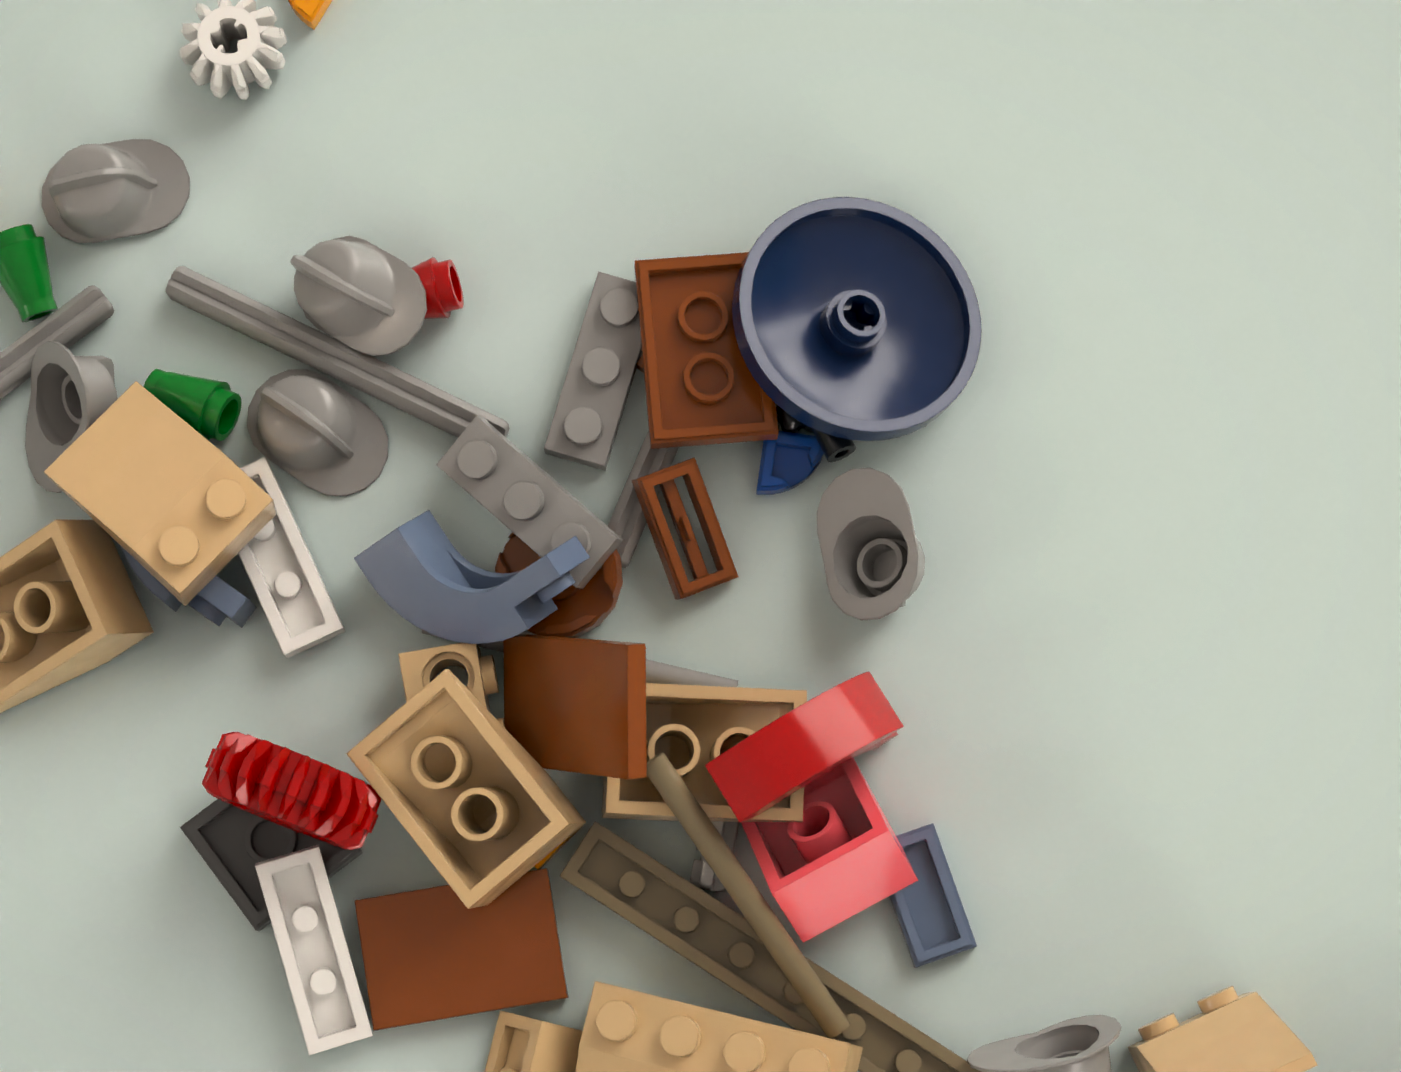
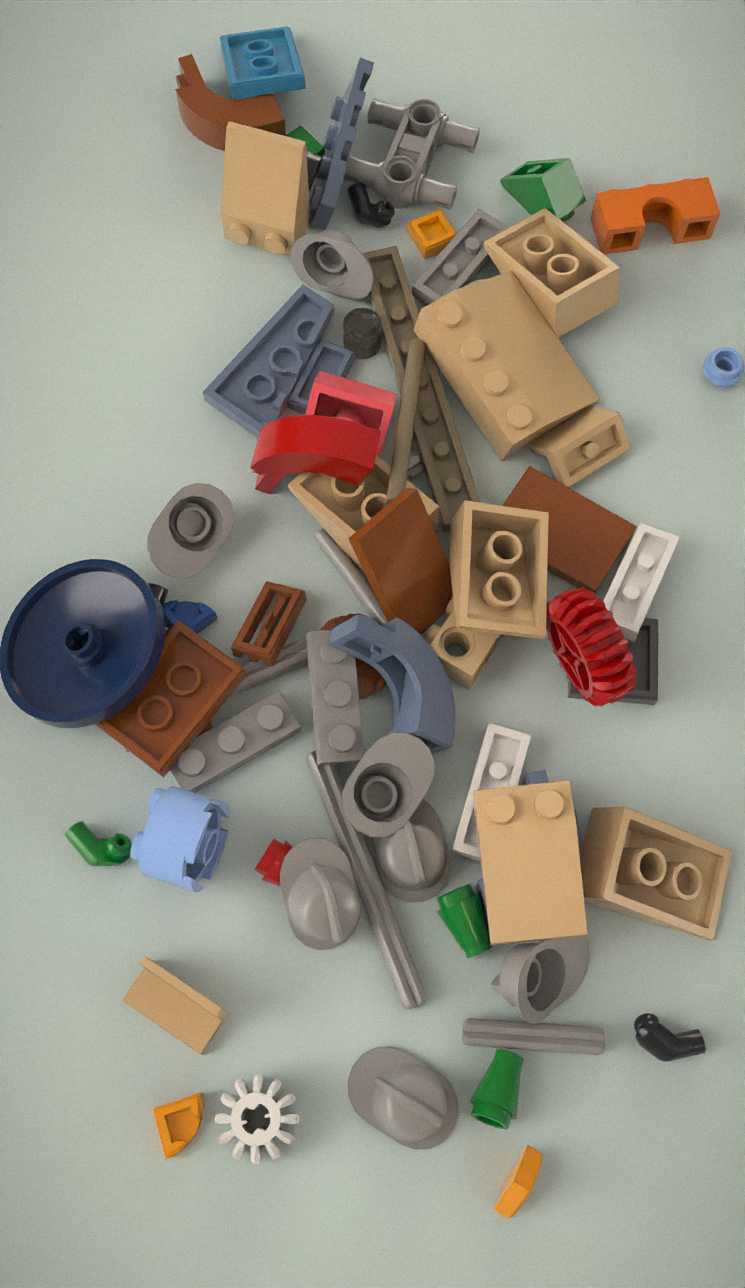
camera: 140 degrees left, 10 degrees down
(384, 453) = (388, 784): none -> light grey piece
(409, 76) = (175, 1006): none -> tan panel
(546, 217) = (181, 838): none -> light blue brick
(630, 144) = (100, 851): none -> green arm
(943, 994) = (363, 322): none -> clear smoke wheel
(996, 844) = (265, 371): none -> sand blue wing

